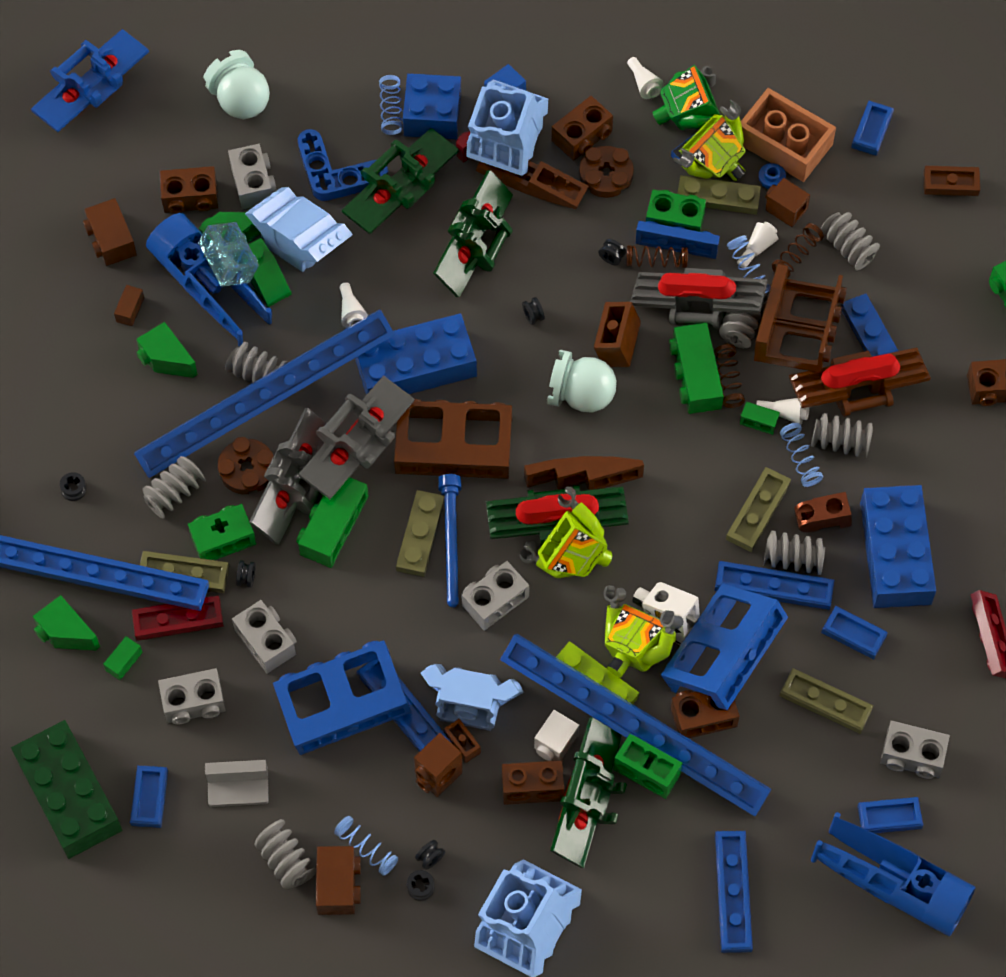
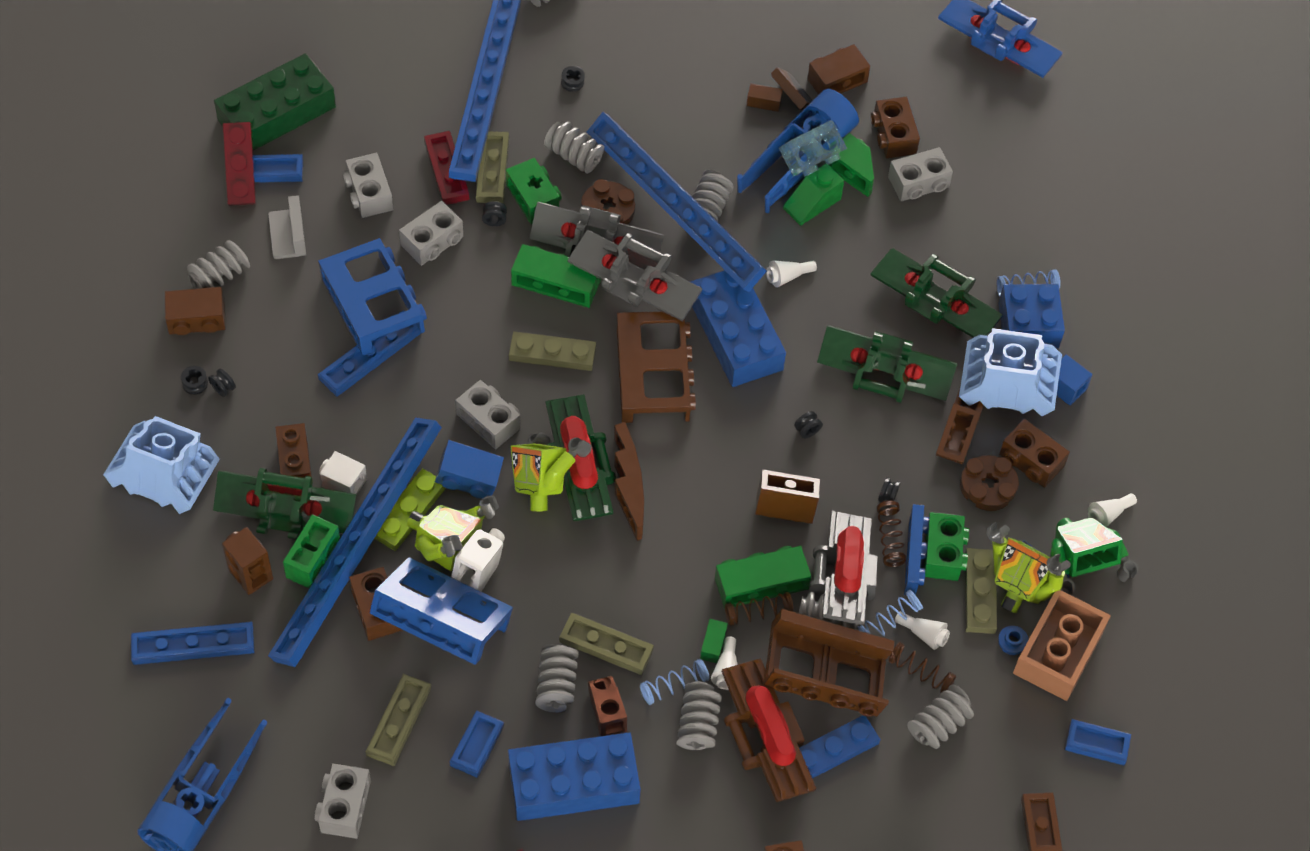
camera: 80 degrees right, 5 degrees down
(64, 627) = (431, 85): green slope -> none
(122, 658) = (405, 133): green piece -> none
(128, 275) = (791, 88): none -> reddish brown tile
(150, 825) = (239, 163): none -> dark red plate
(165, 353) = (718, 127): green slope -> none
(238, 85) = (1016, 148): light aqua tile -> none
(297, 228) = (864, 210): light blue slope -> none
(332, 178) = (937, 240): blue beam -> none
(386, 866) = (242, 308): light blue piece -> none
(437, 765) = (303, 374): reddish brown brick -> none
(449, 486) = (601, 369): blue piece -> none
(462, 740) = (337, 401): reddish brown piece -> none
(469, 695) = (382, 393): light blue slope -> none
(563, 615) = (469, 469): none -> blue brick
(583, 383) = (724, 462): light aqua tile -> none
(656, 826) = (247, 560): none -> reddish brown brick
(777, 584) = (524, 666): blue tile -> none
(787, 202) = (980, 654): reddish brown brick -> none
(890, 815) = (275, 784): blue tile -> none

